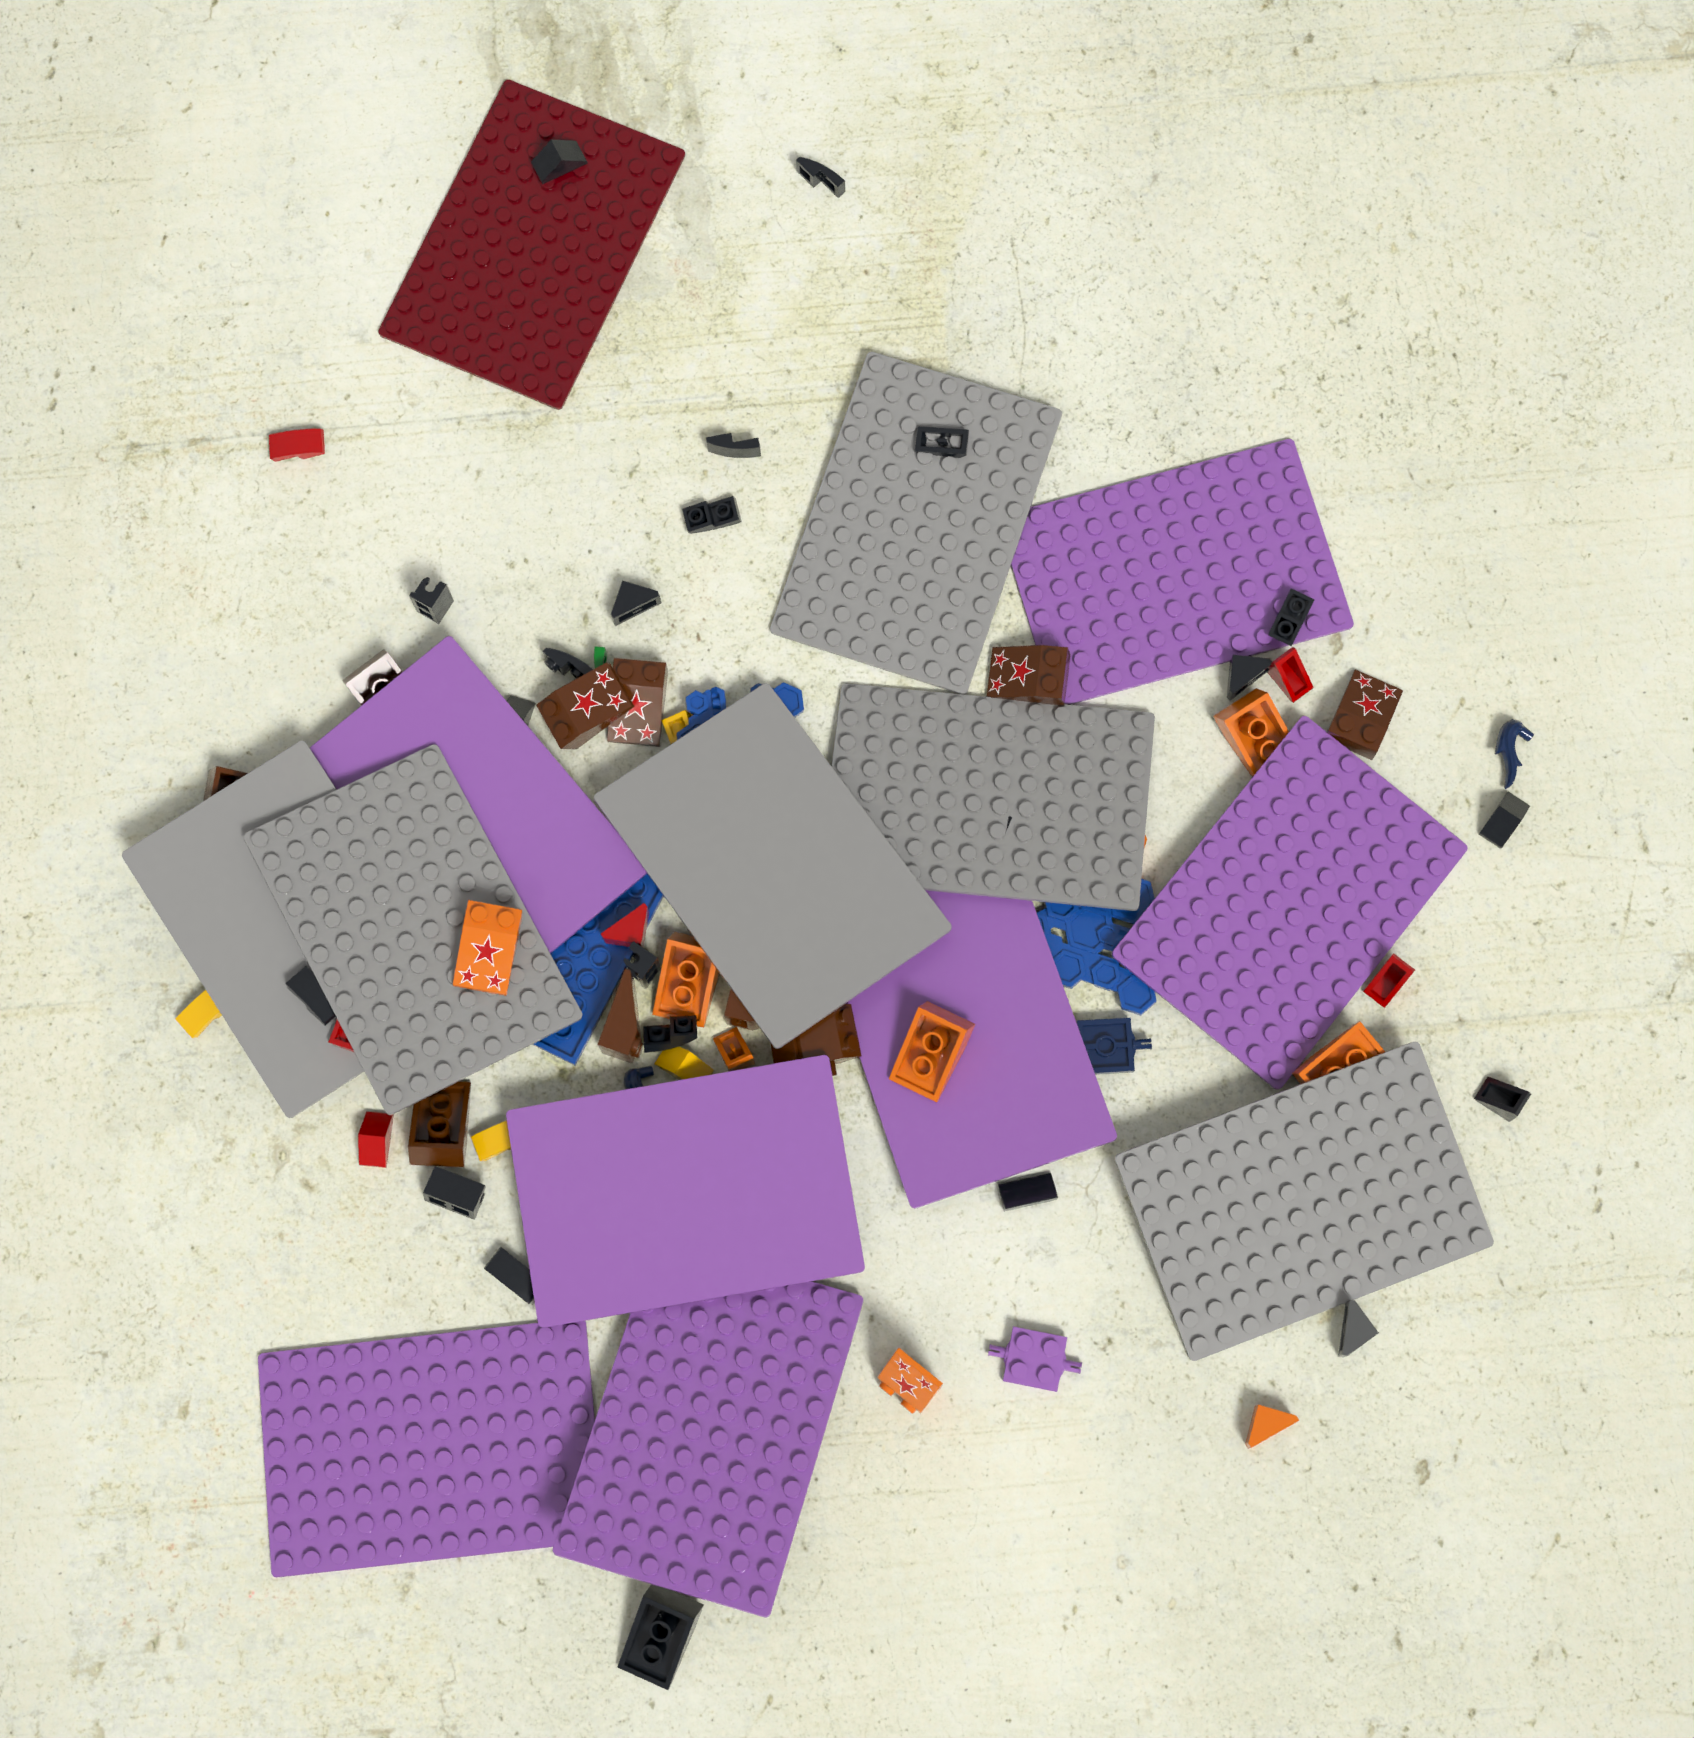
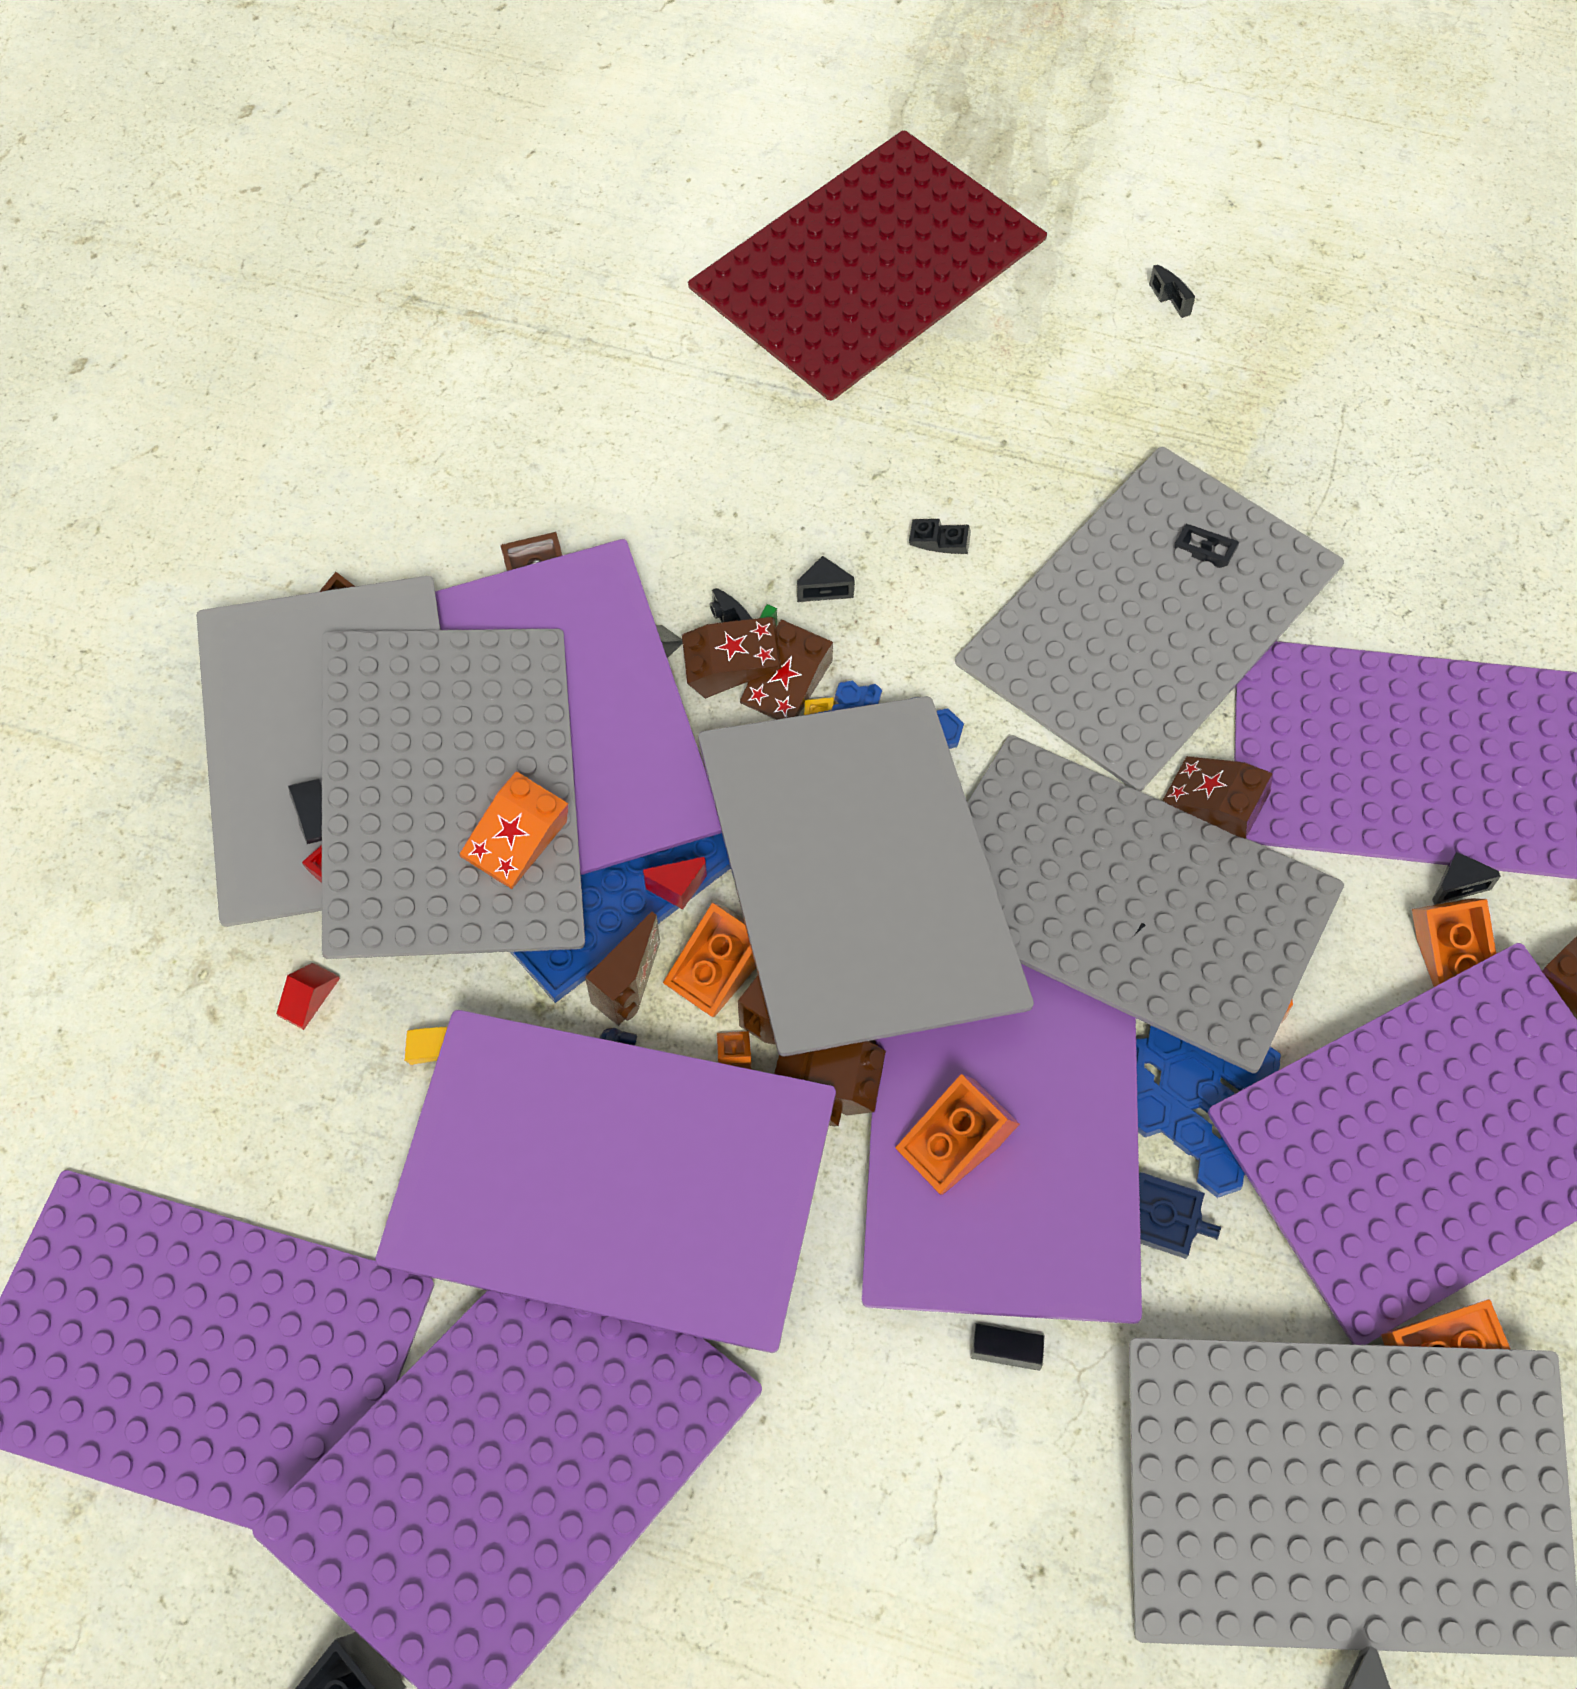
camera: 20 degrees right, 15 degrees down
(198, 1015) = (191, 802): yellow slope -> none
(296, 443) = (567, 342): red slope -> none
(432, 604) = (624, 509): hinge -> none
(441, 1127) = (380, 1004): reddish brown slope -> none
(454, 1192) = (359, 1081): black hinge -> none
(511, 1274) = (376, 1193): black slope -> none
(558, 159) = (923, 197): black slope -> none
(645, 965) = (675, 923): black hinge -> none
(664, 1037) = (682, 1009): black slope -> none
(682, 1064) = (669, 1038): yellow slope -> none
(724, 446) = (997, 488): black slope -> none
(909, 1382) = (775, 1510): orange slope -> none
(1035, 1359) = (940, 1553): medium lavender plate -> none
(1290, 675) = (1515, 897): red slope -> none
(1291, 617) = (1535, 840): black slope -> none
(1389, 980) = (1537, 1272): red slope -> none

